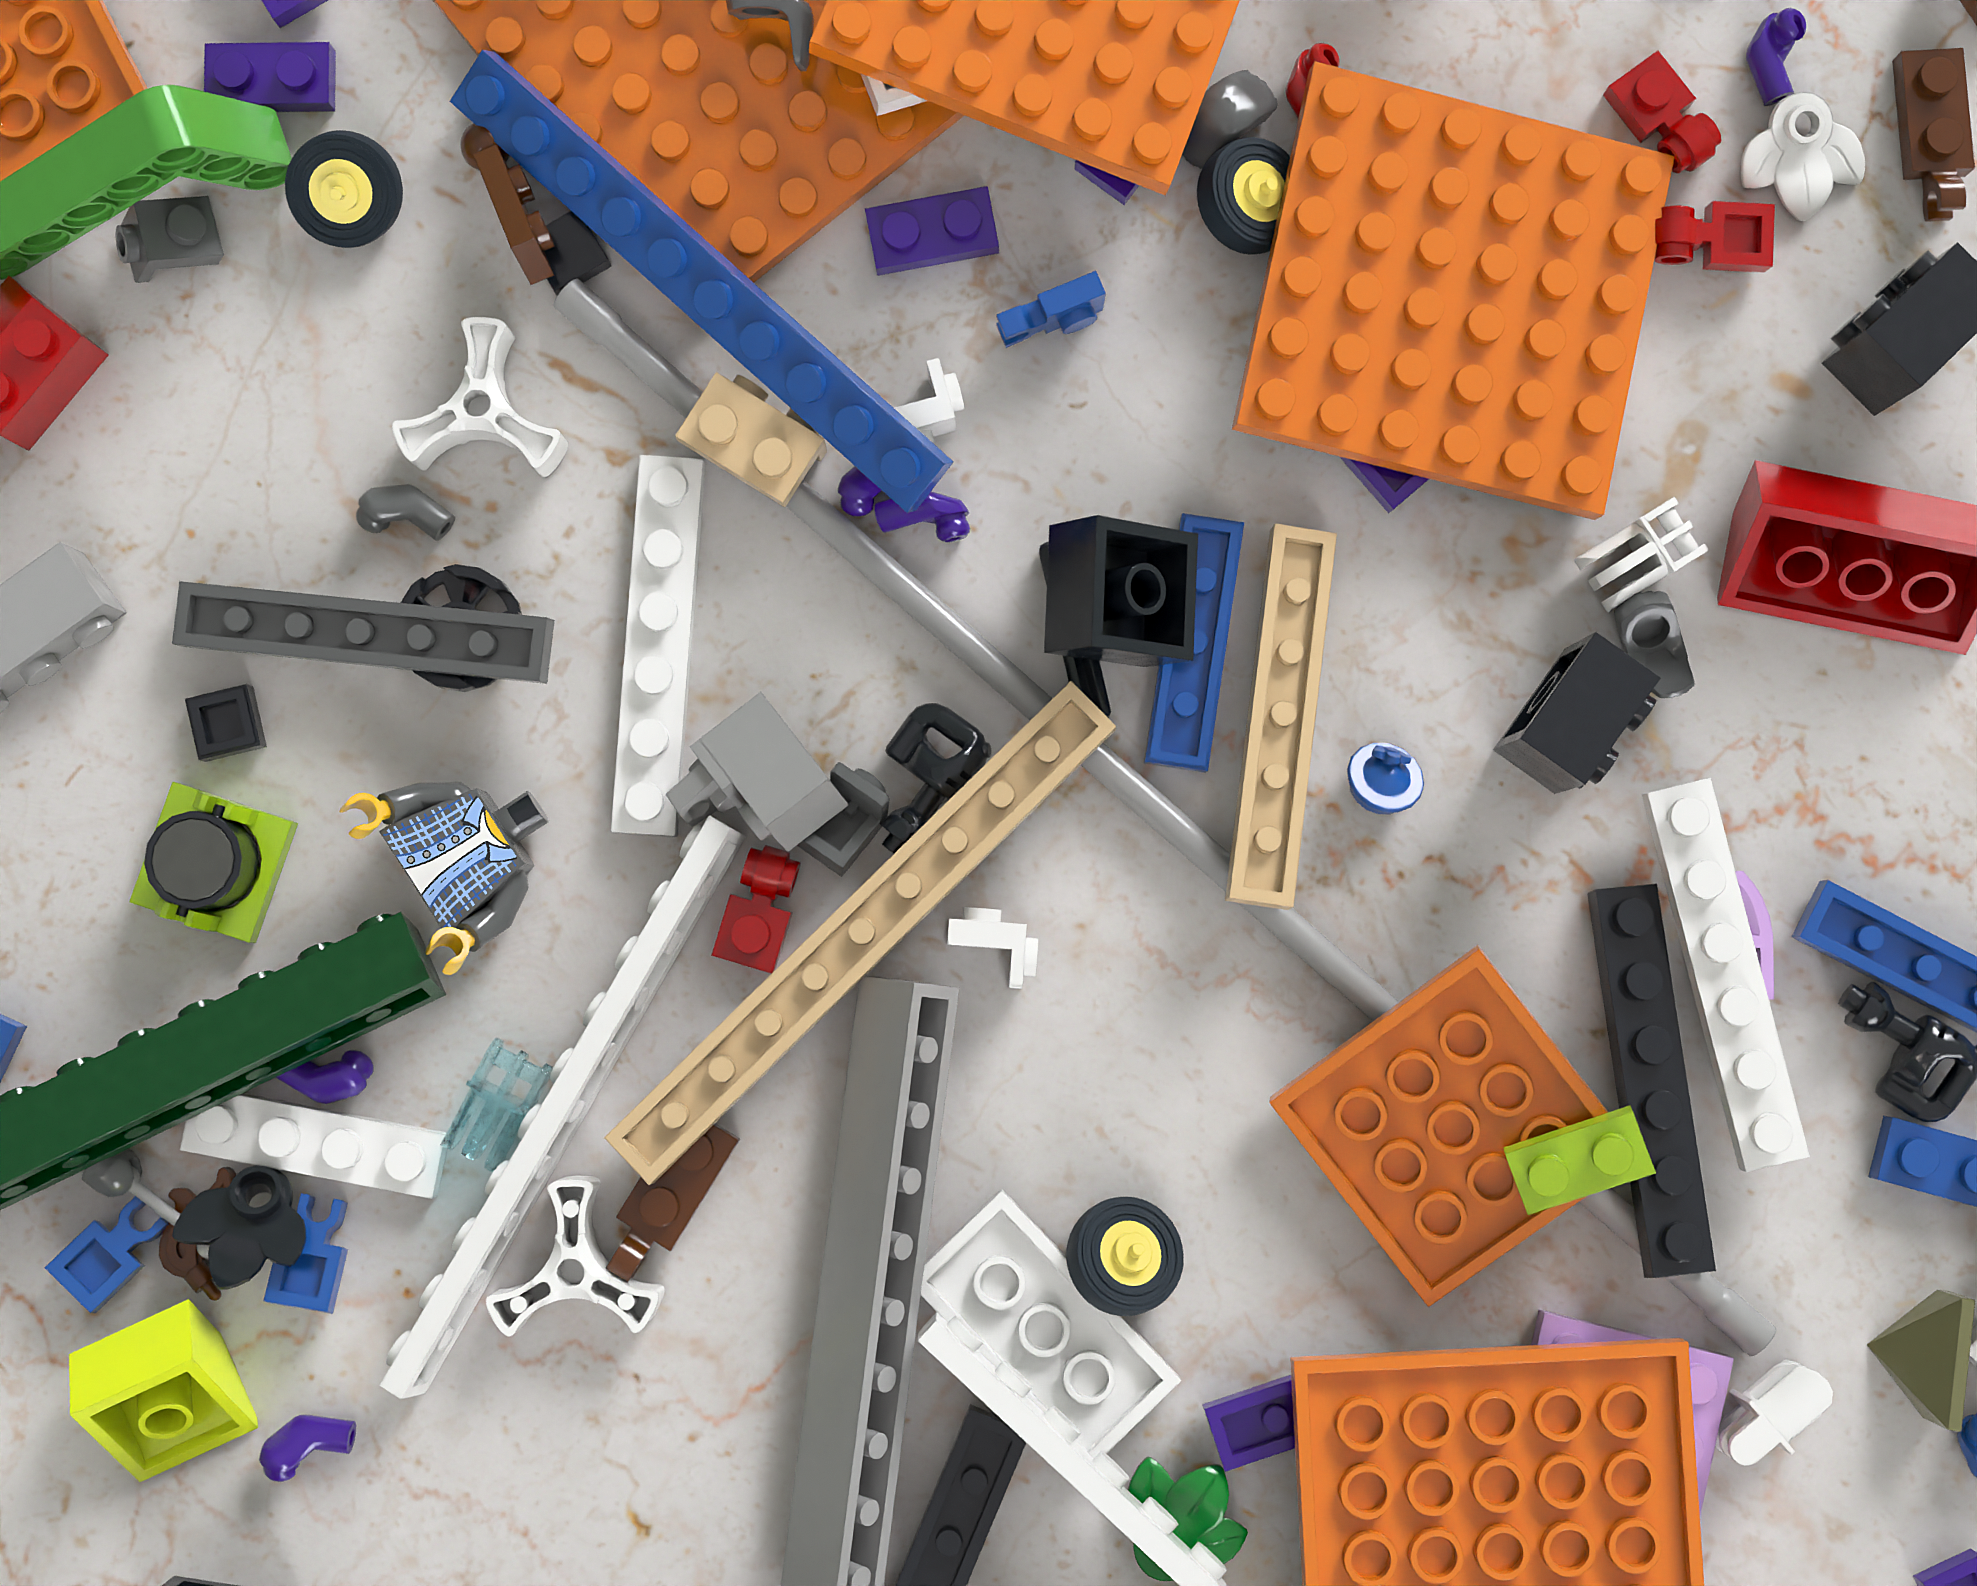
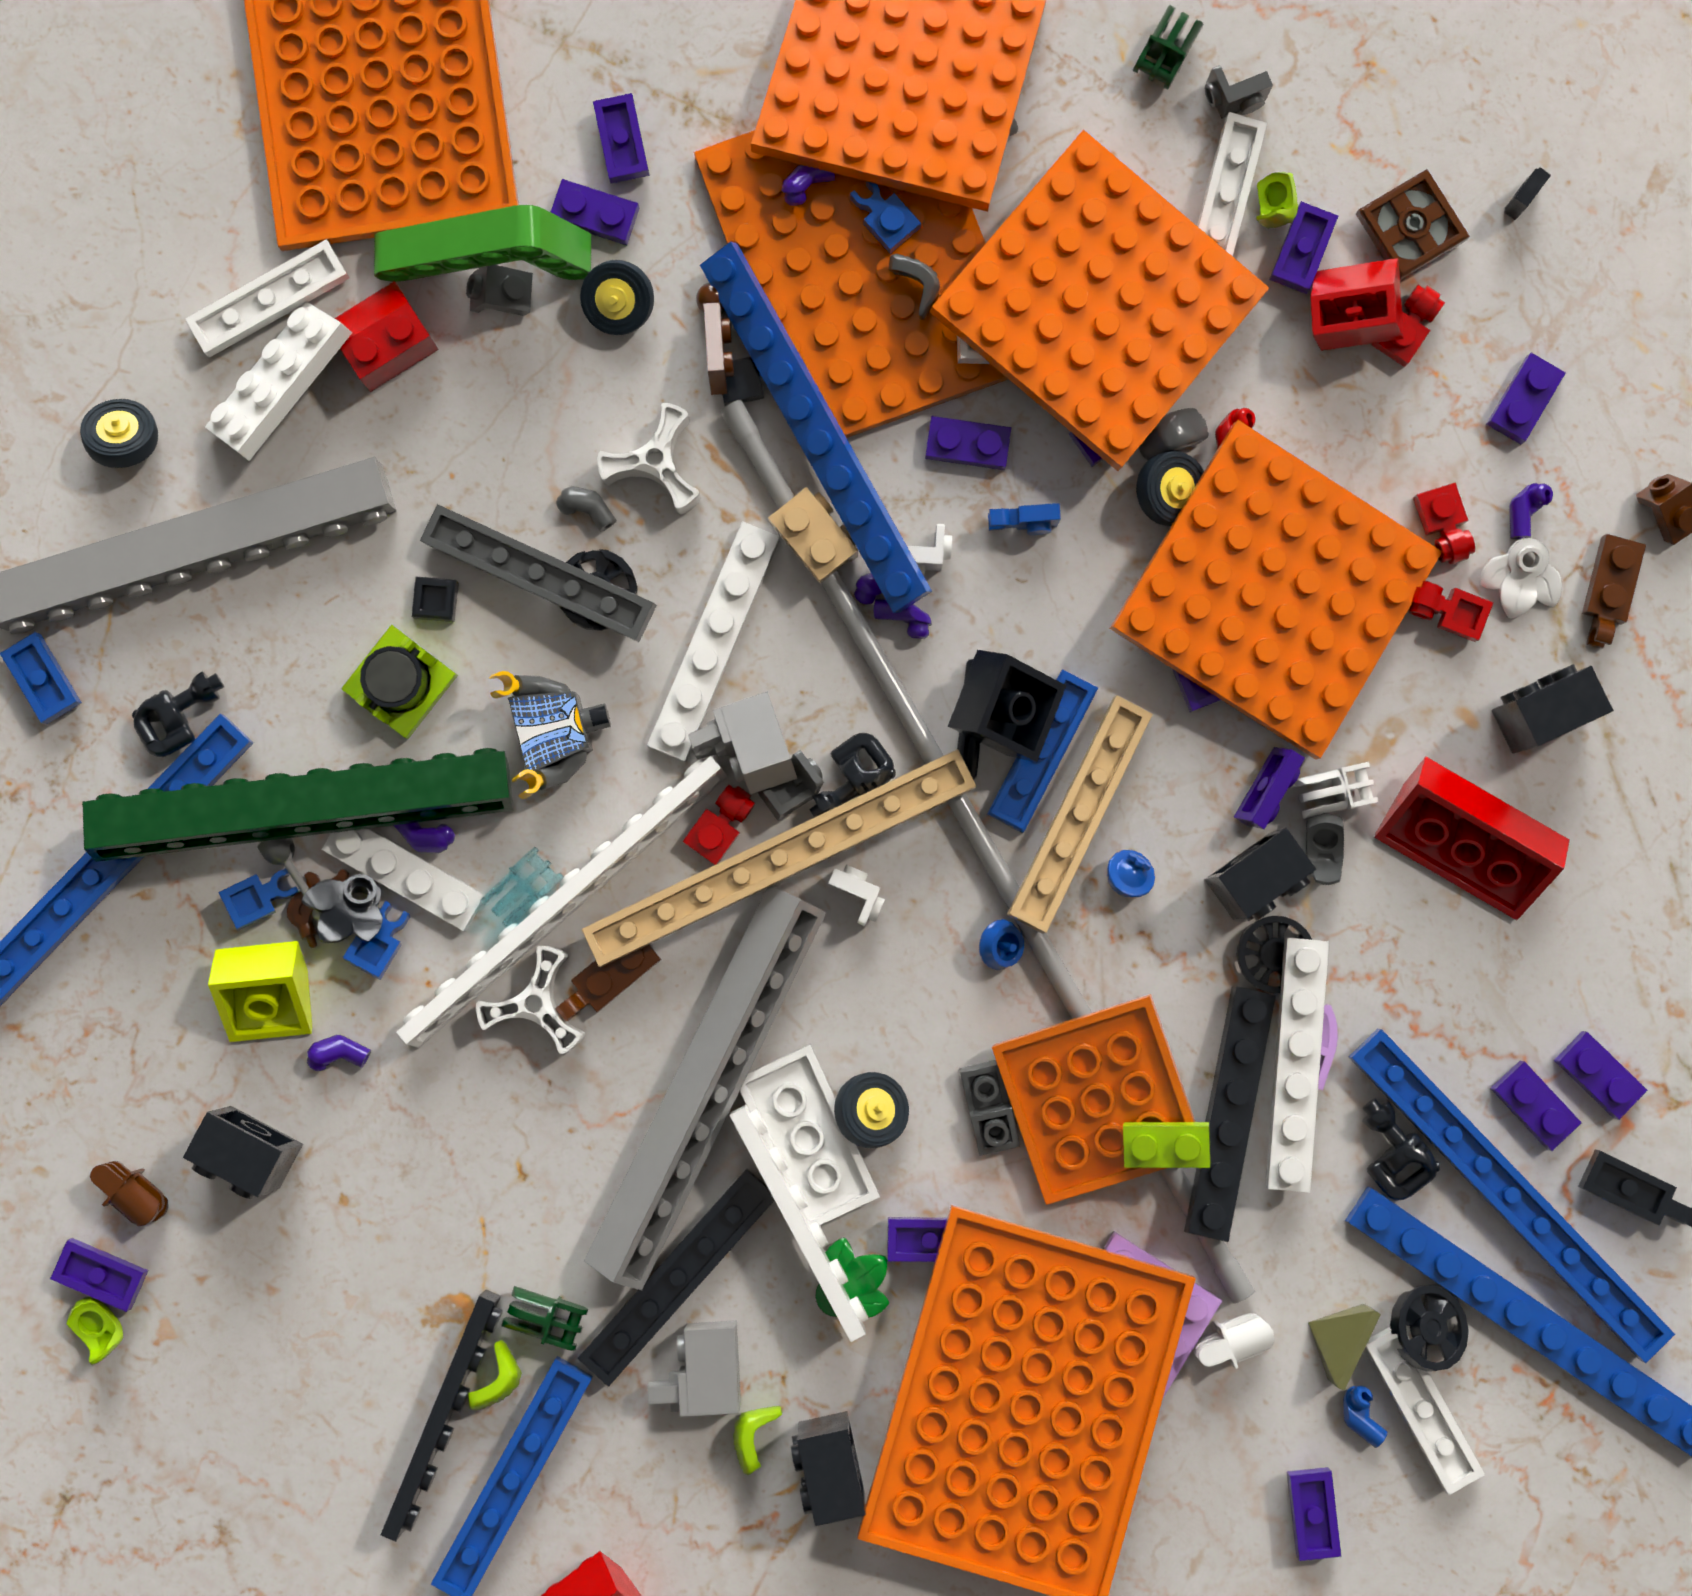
camera: 20 degrees right, 0 degrees up
(1231, 947) = (1001, 945): none -> blue hat
(1295, 1192) = (989, 1108): none -> dark grey slope
(1543, 583) = (1269, 787): none -> dark purple plate
(1625, 823) = (1270, 951): none -> black wheel

